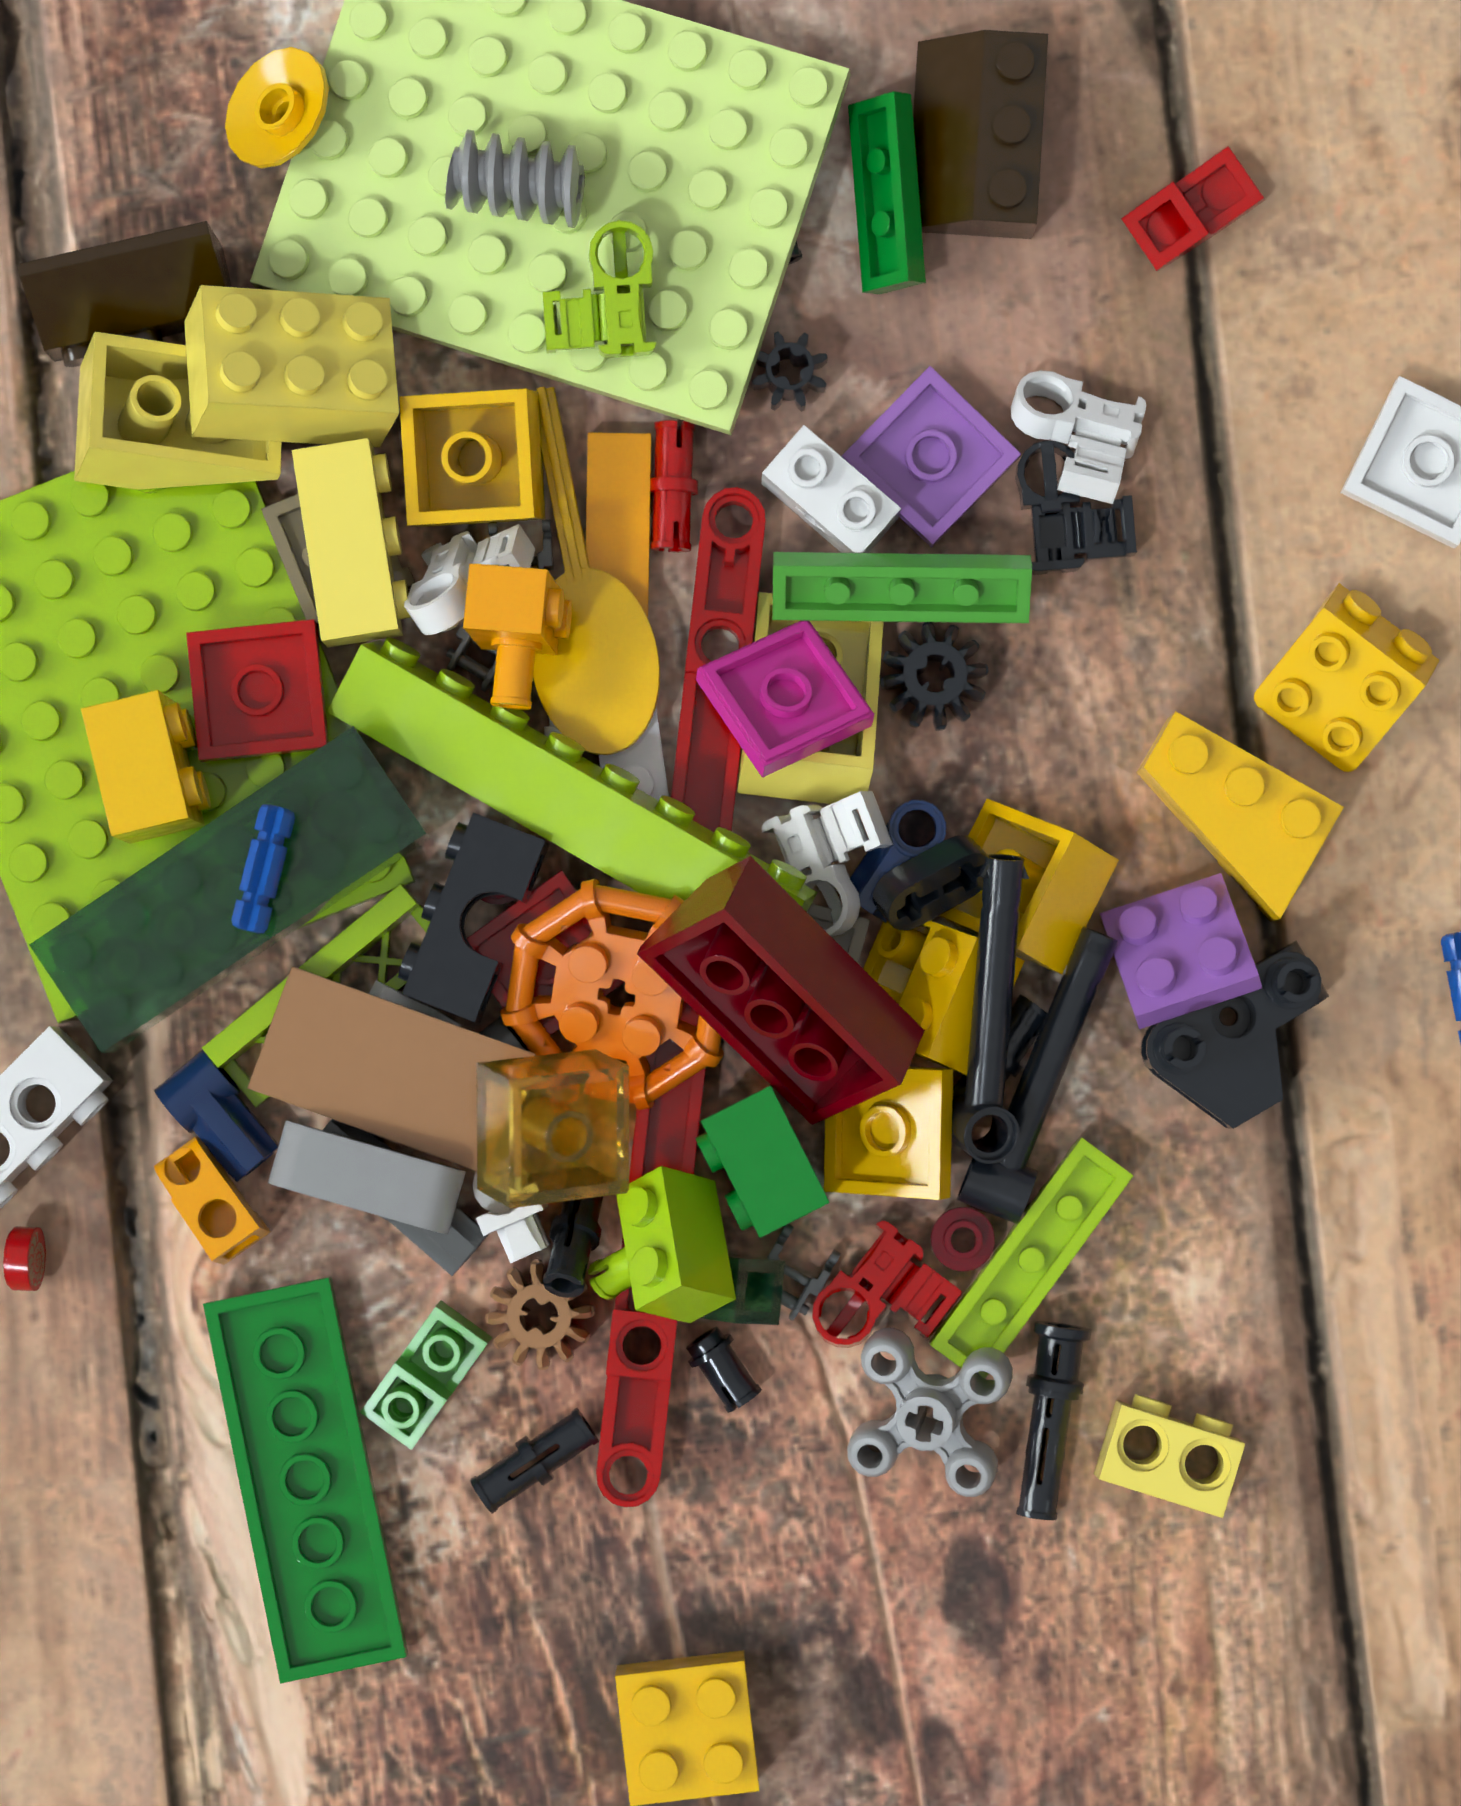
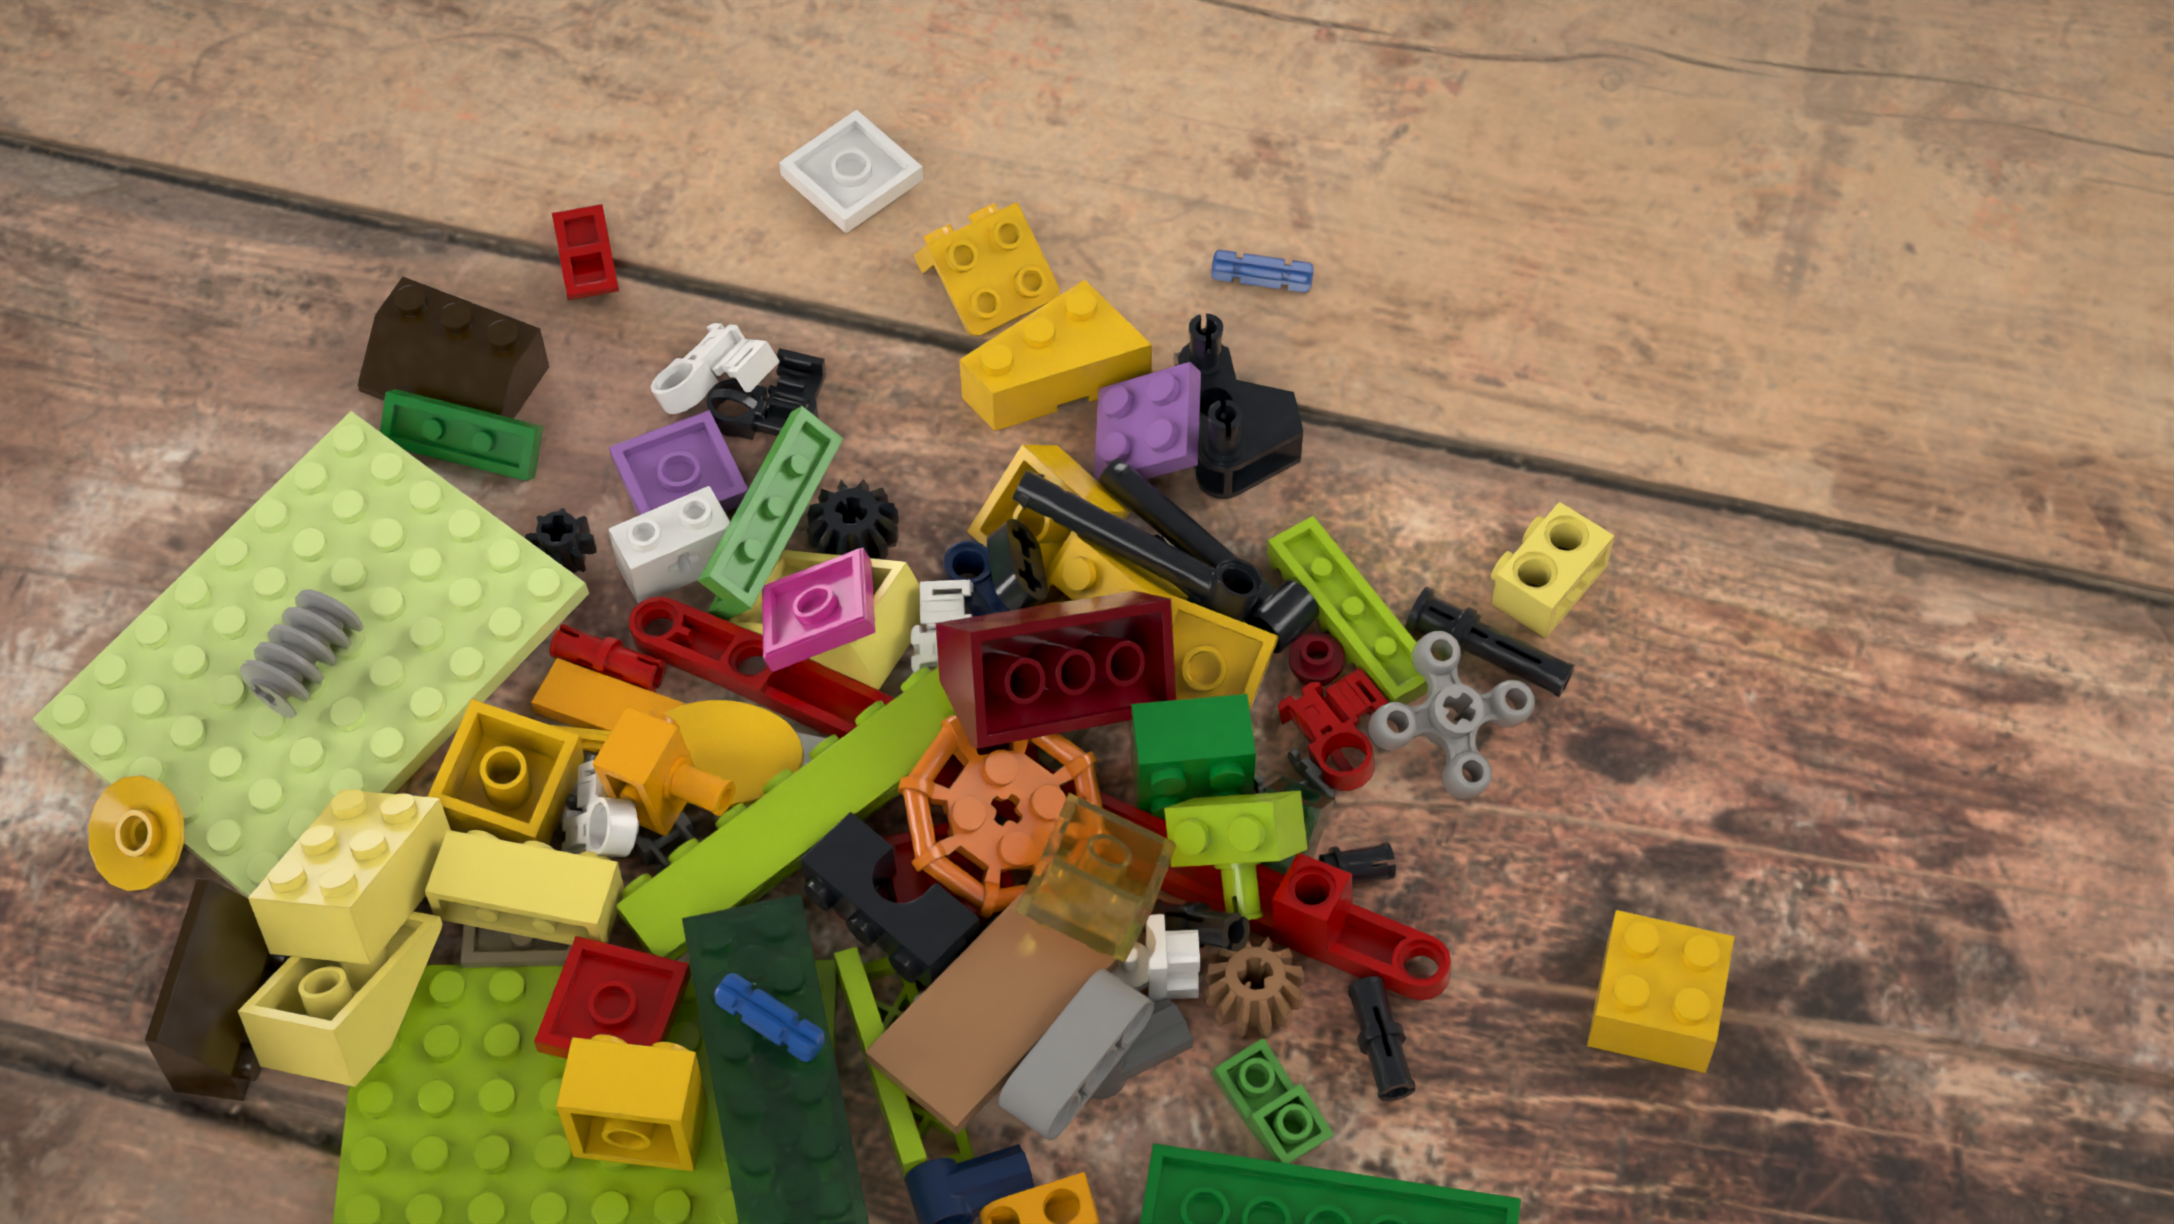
camera: 70 degrees left, 30 degrees down
(608, 316) = (437, 620): lime piece -> none

